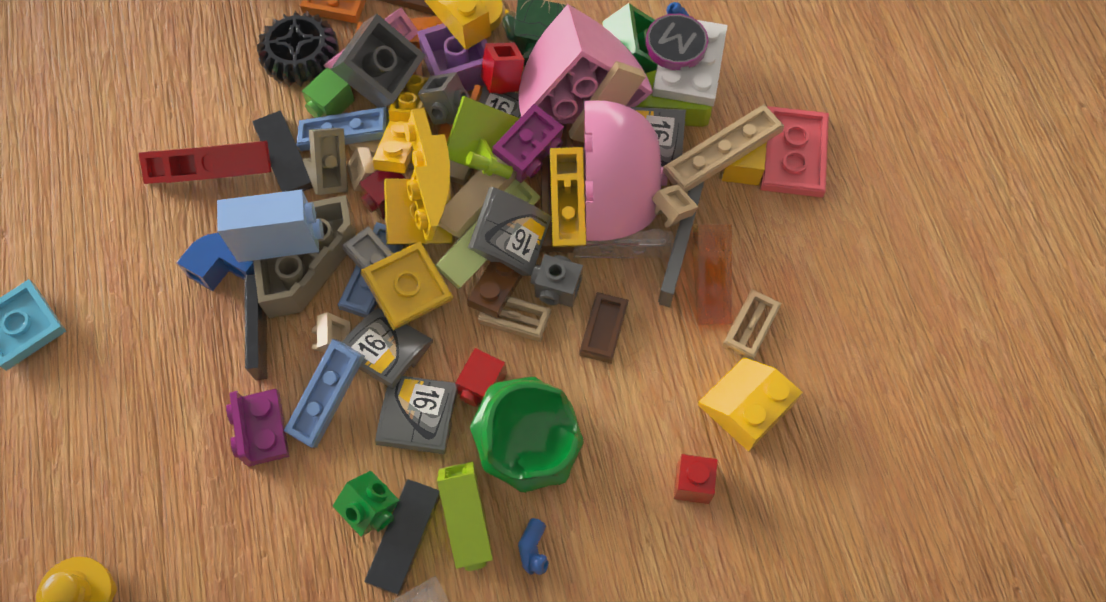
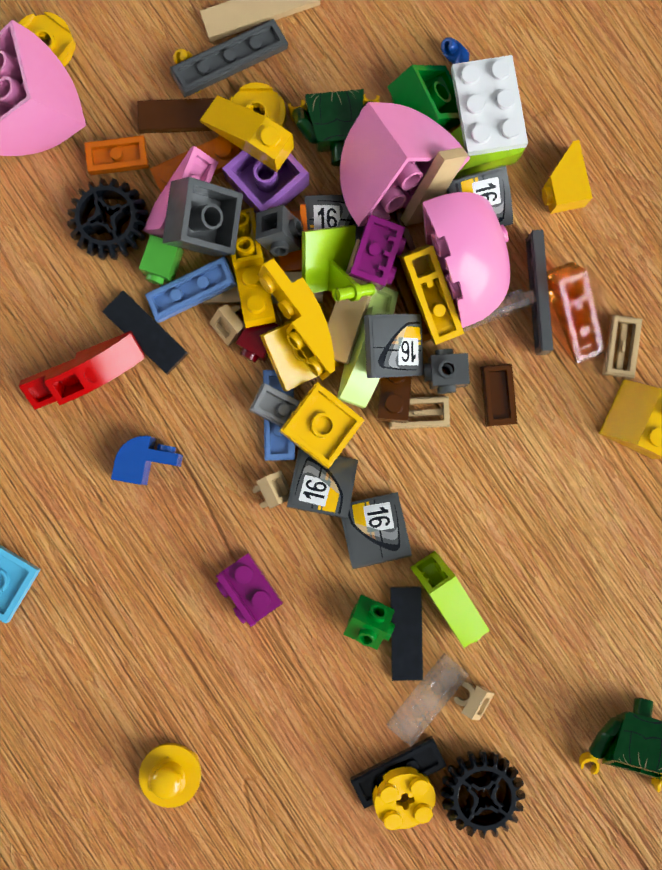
camera: 20 degrees left, 20 degrees up
(255, 332) = (204, 507): black tile -> none
(269, 225) = (190, 428): light blue brick -> none
(291, 282) = (210, 427): dark tan brick -> none
(324, 393) = (293, 544): medium blue tile -> none
(327, 161) = (194, 330): dark tan slope -> none
(478, 375) = (416, 483): red brick -> none
(502, 67) = (320, 180): red brick -> none
(527, 434) = (475, 516): green piece -> none
(531, 559) = (509, 606): blue arm -> none
(674, 204) = (528, 266): tan tile -> none
(676, 41) = (475, 95): tile -> none
(695, 479) = (623, 503): red brick -> none
(723, 148) = (551, 191): tan tile -> none
(798, 154) = (609, 159): coral tile -> none

